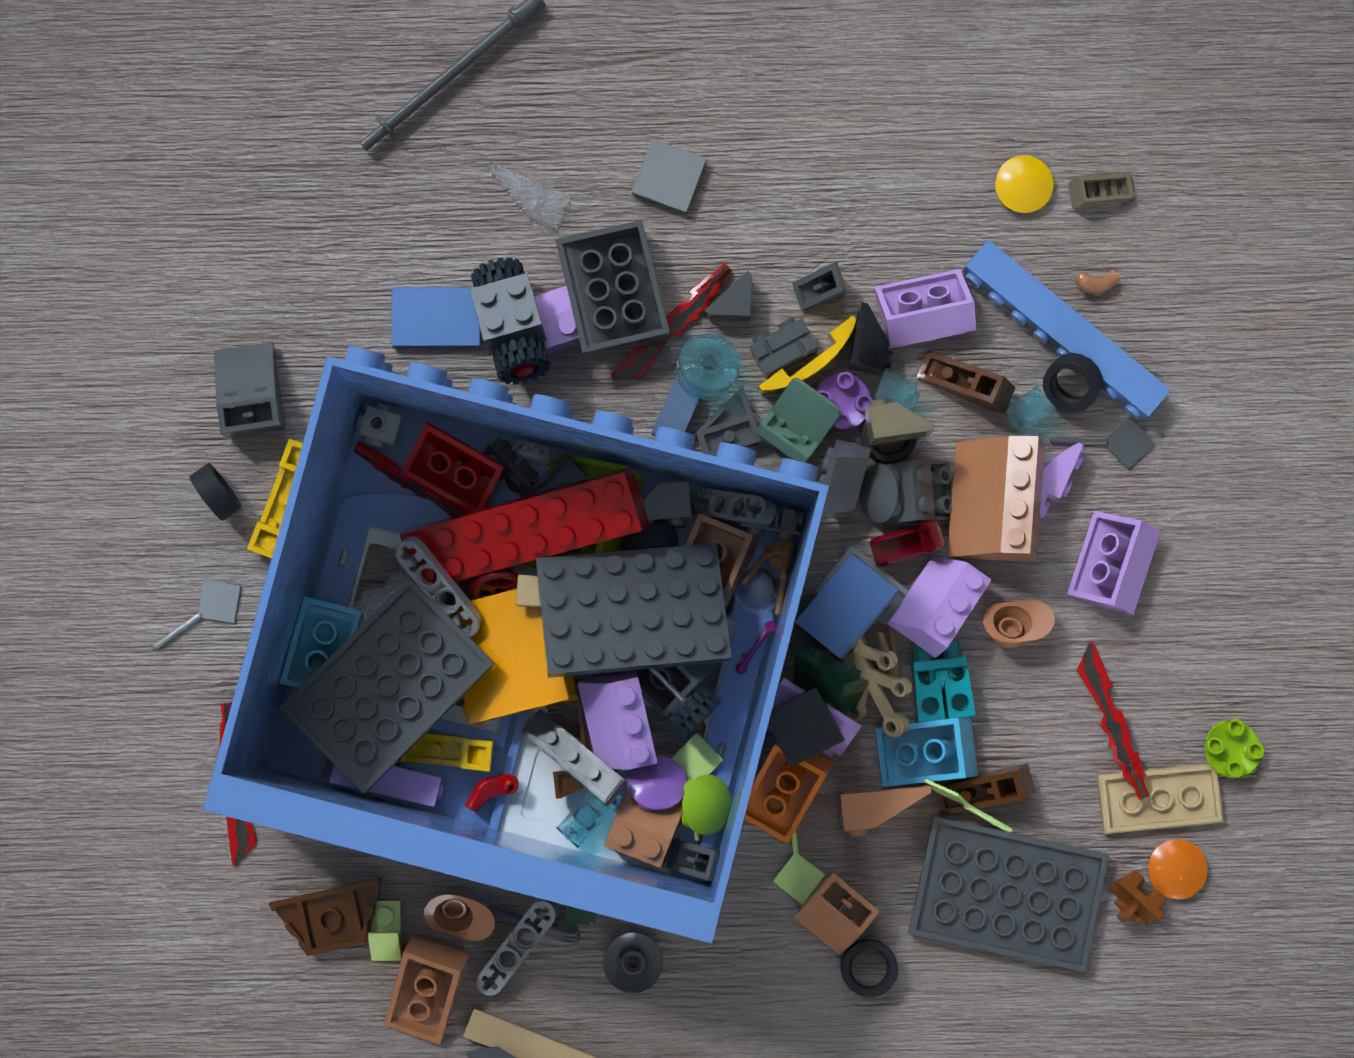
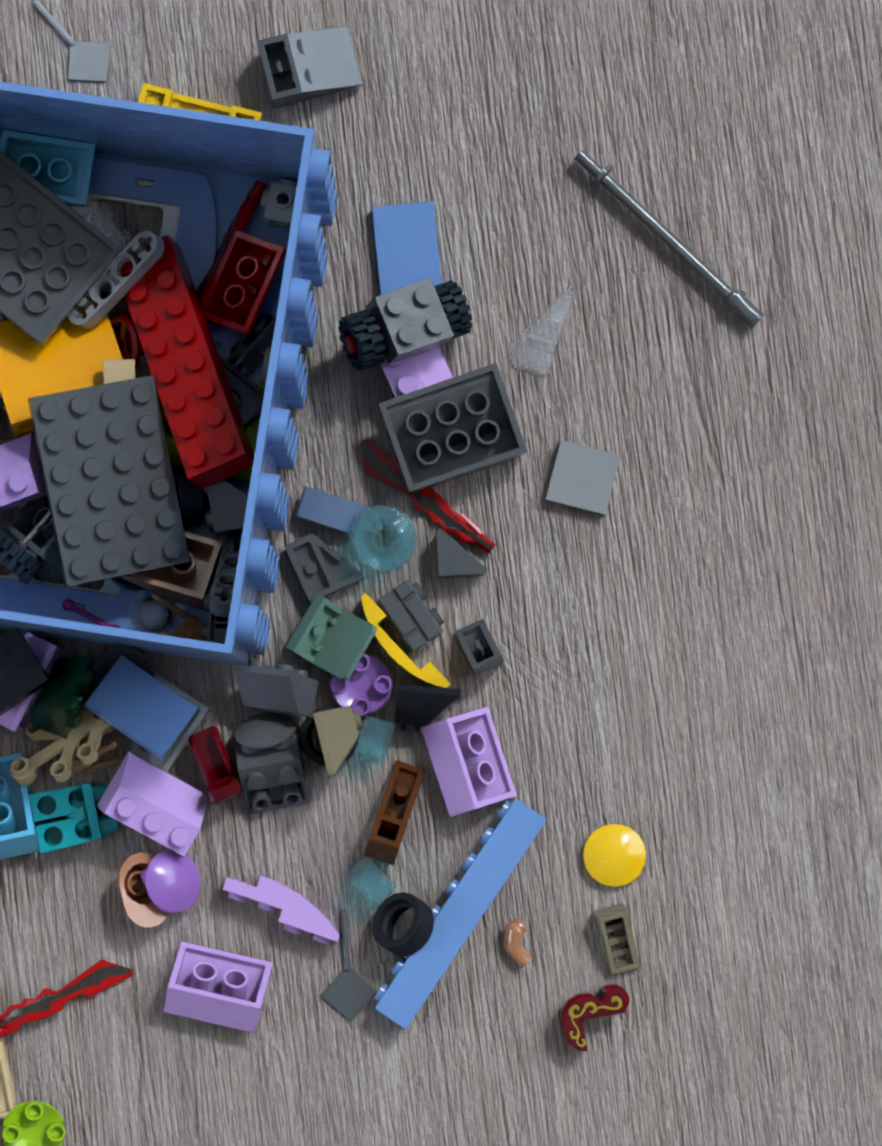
camera: 85 degrees right, 0 degrees up
(215, 491) = (198, 43): black tyre -> none
(996, 499) = (270, 855): nougat slope -> none
(1012, 595) = (171, 881): none -> medium lavender dish
(1162, 223) = (589, 1006): none -> dark red animal

